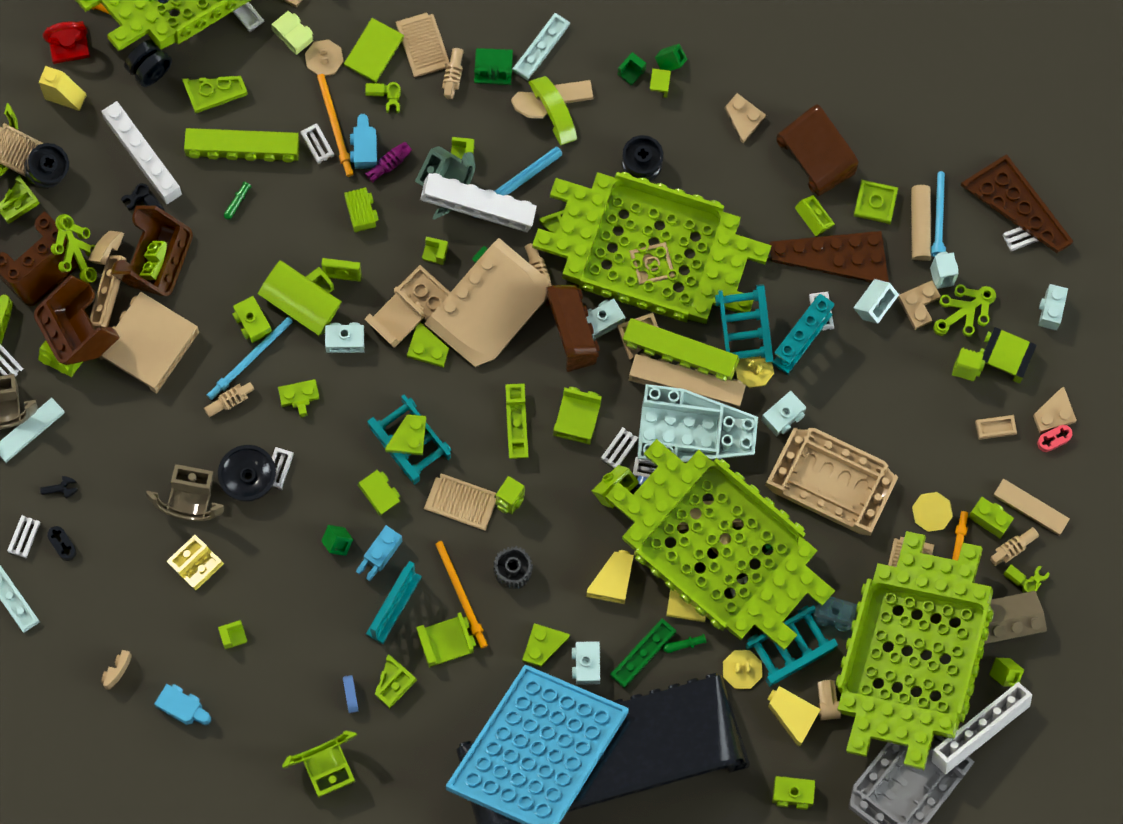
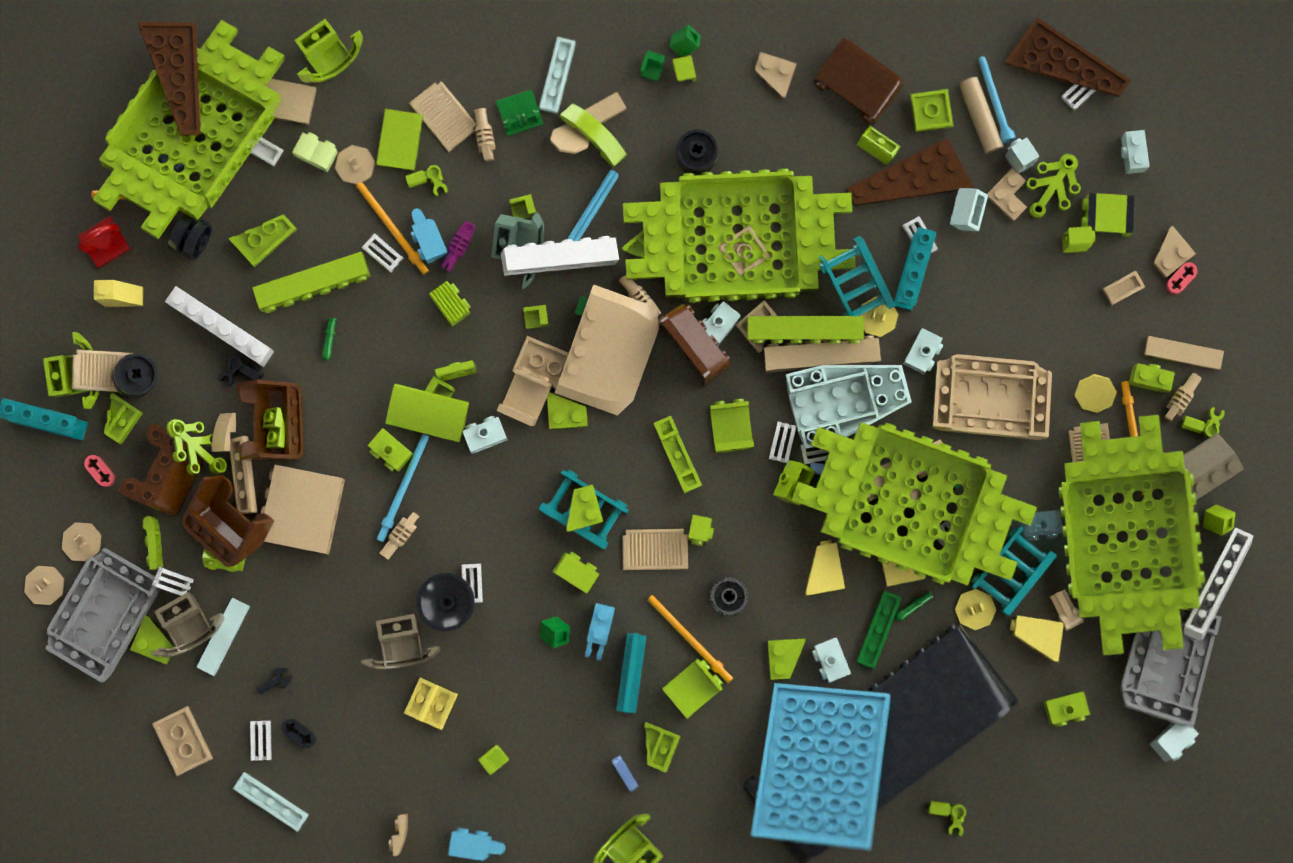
camera: 15 degrees left, 10 degrees up
(299, 395) = (463, 506): lime hinge -> none

